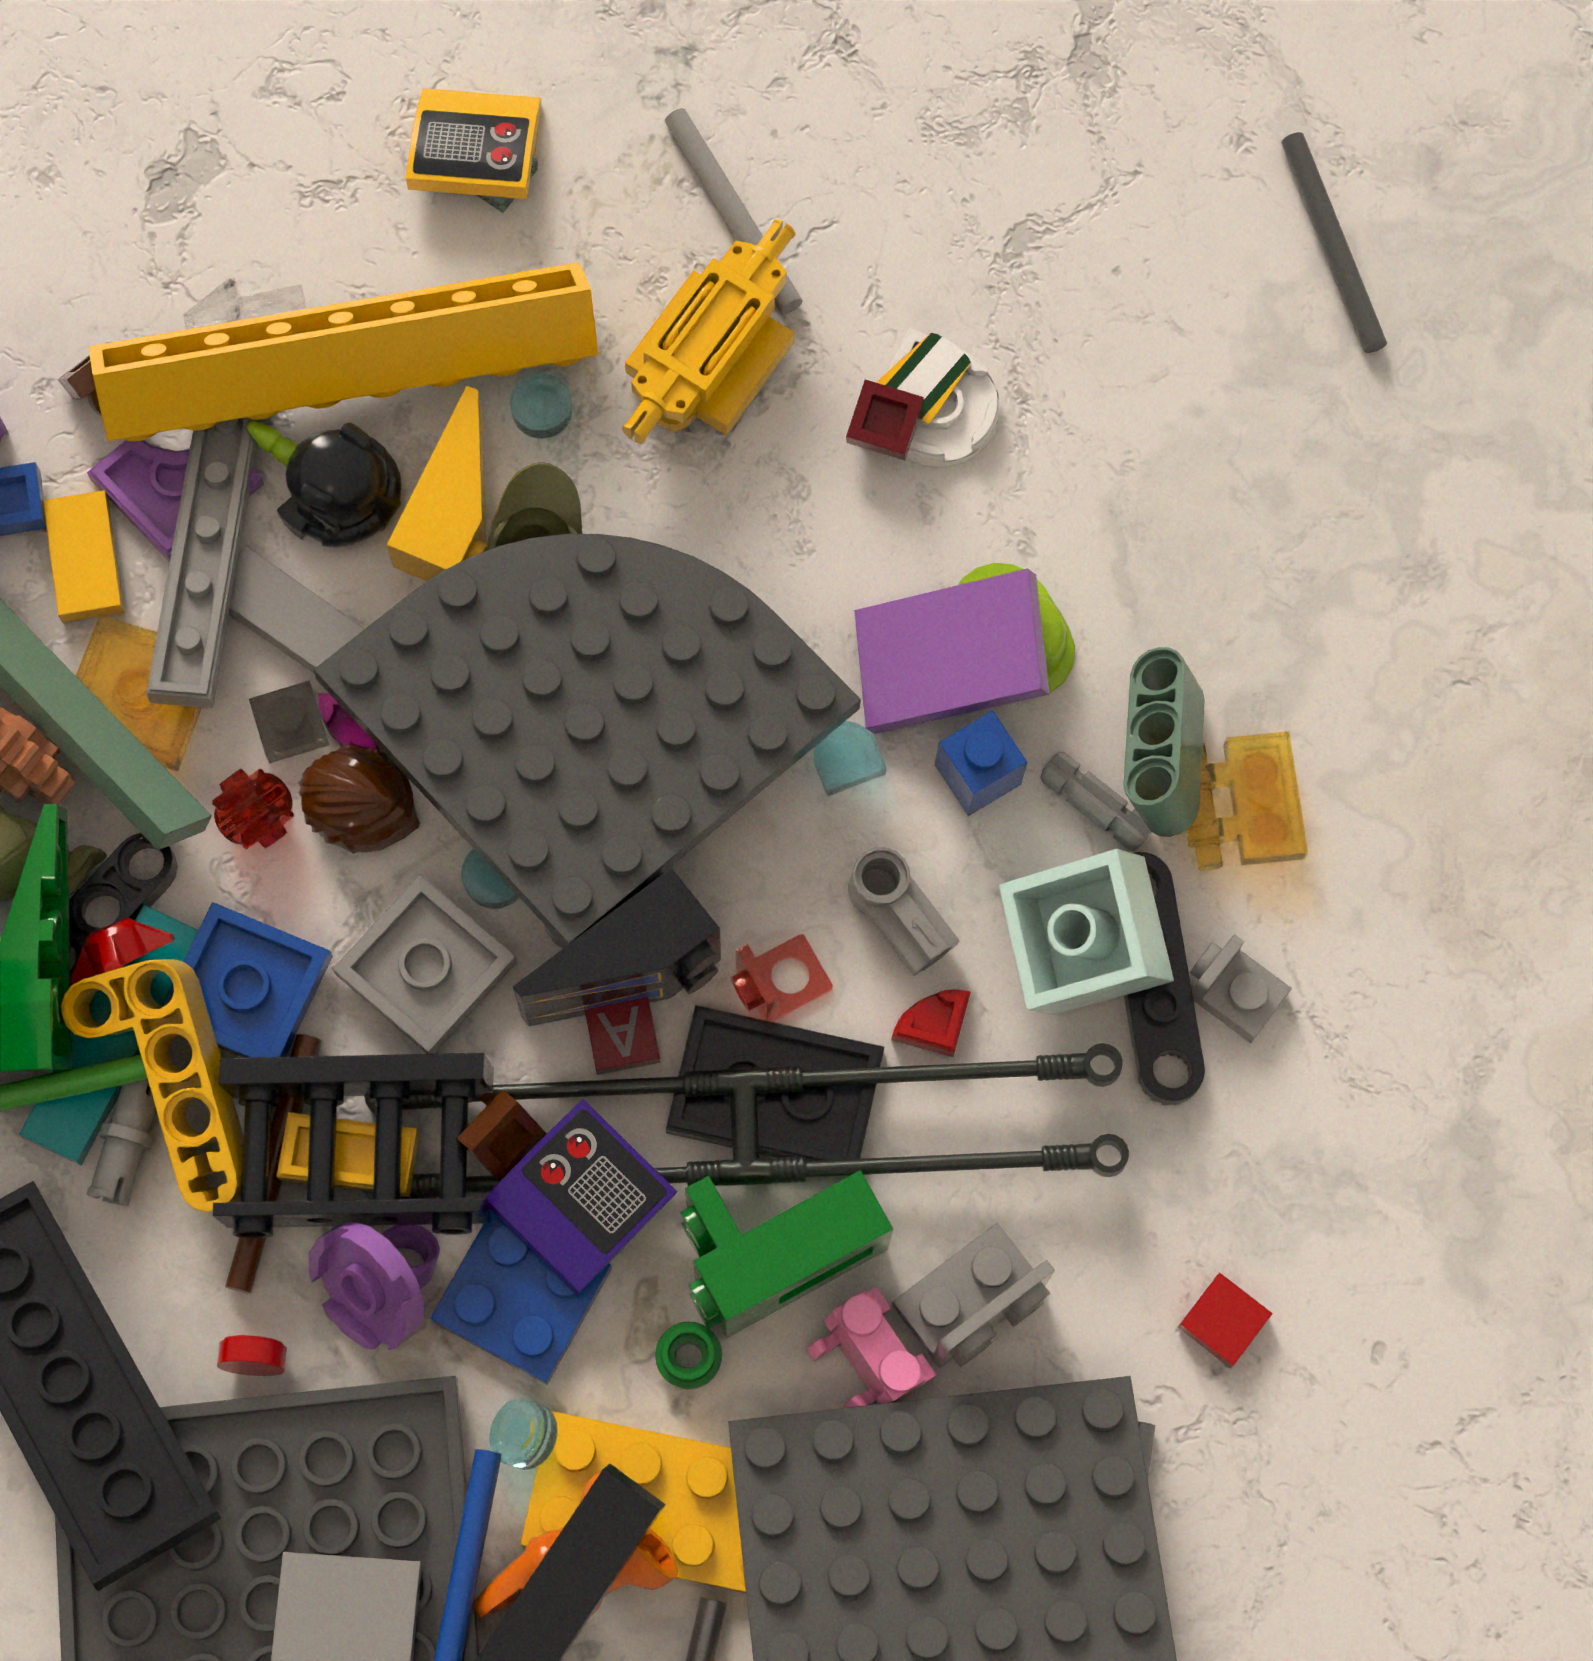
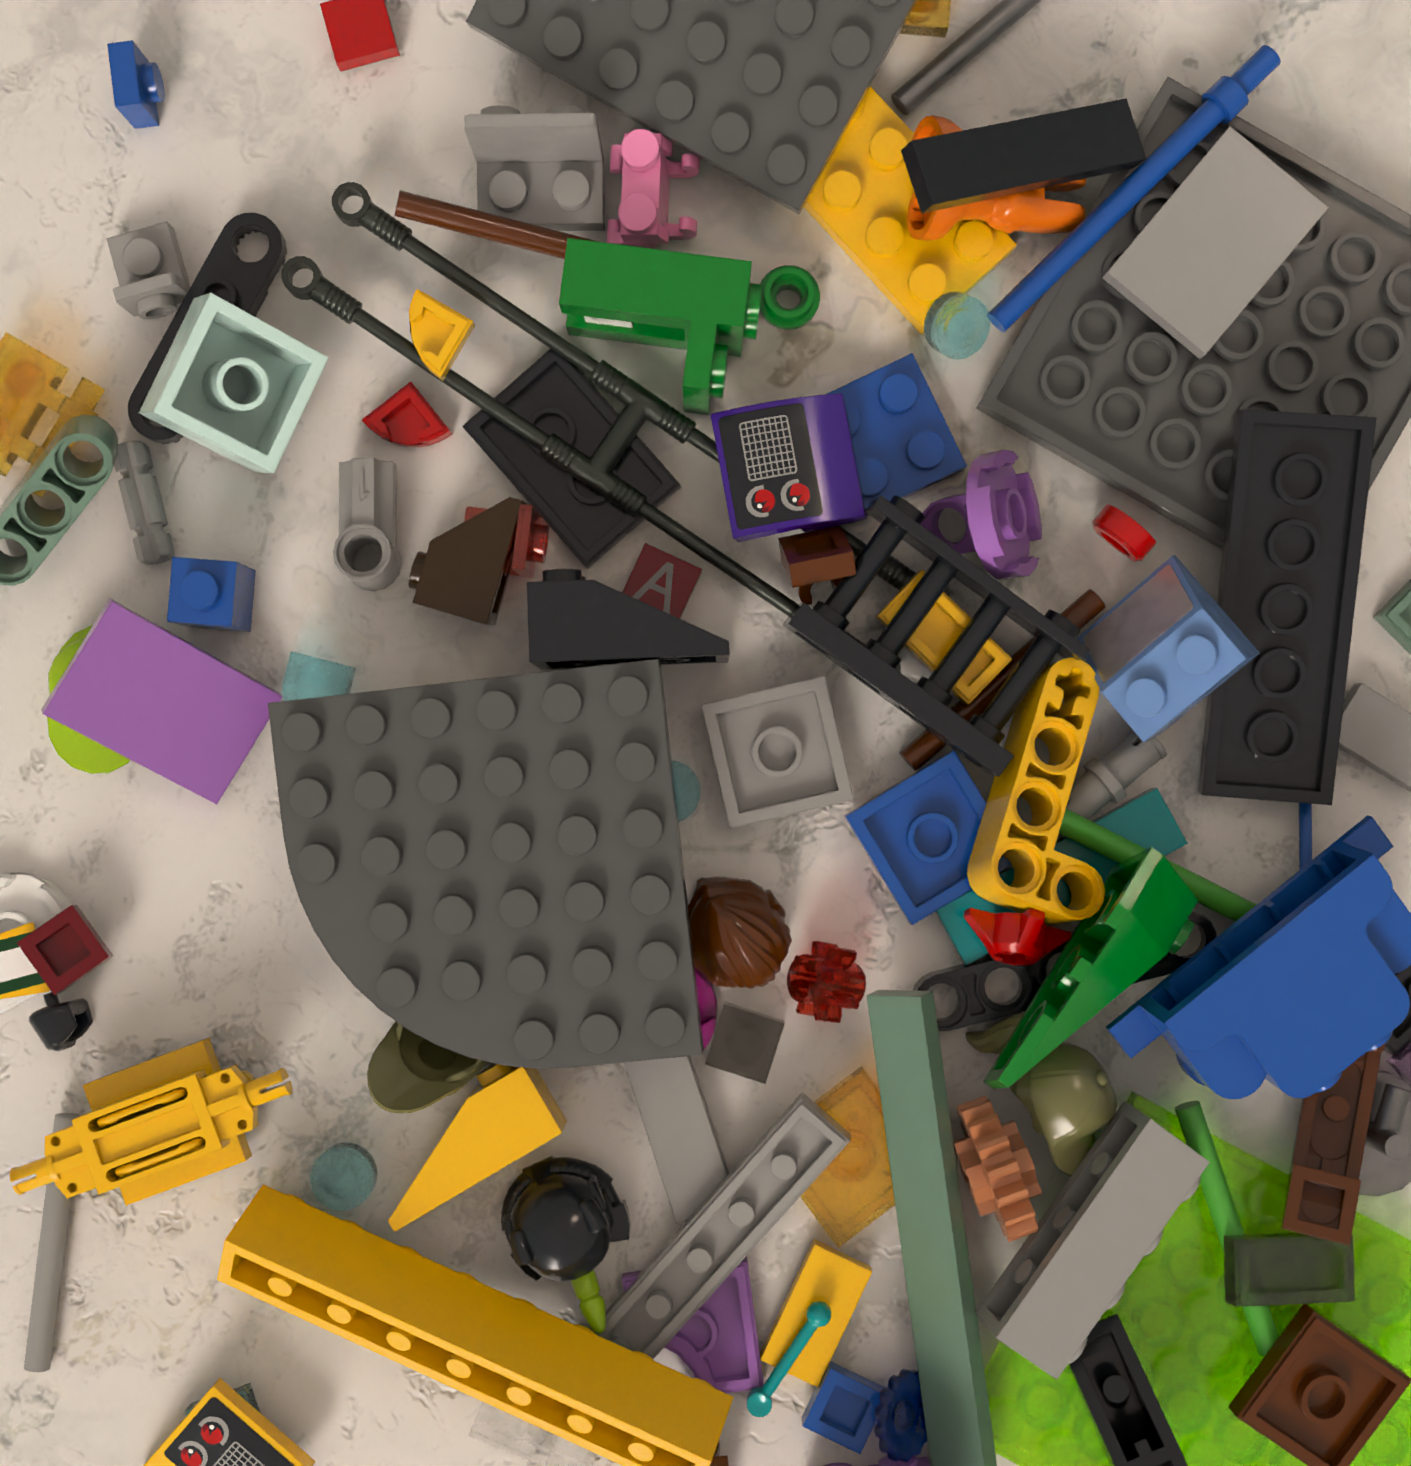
camera: 140 degrees left, 15 degrees up
(83, 461) = (760, 1398): none -> teal hinge
(148, 1267) = (1164, 649): none -> medium blue slope
(789, 932) = (469, 565): none -> dark brown slope
(848, 368) = (61, 1023): none -> black piece
(950, 1234) = (482, 224): none -> reddish brown bar
(954, 1094) = (437, 332): none -> yellow tile
(1366, 1129) = (135, 84): none -> blue plate

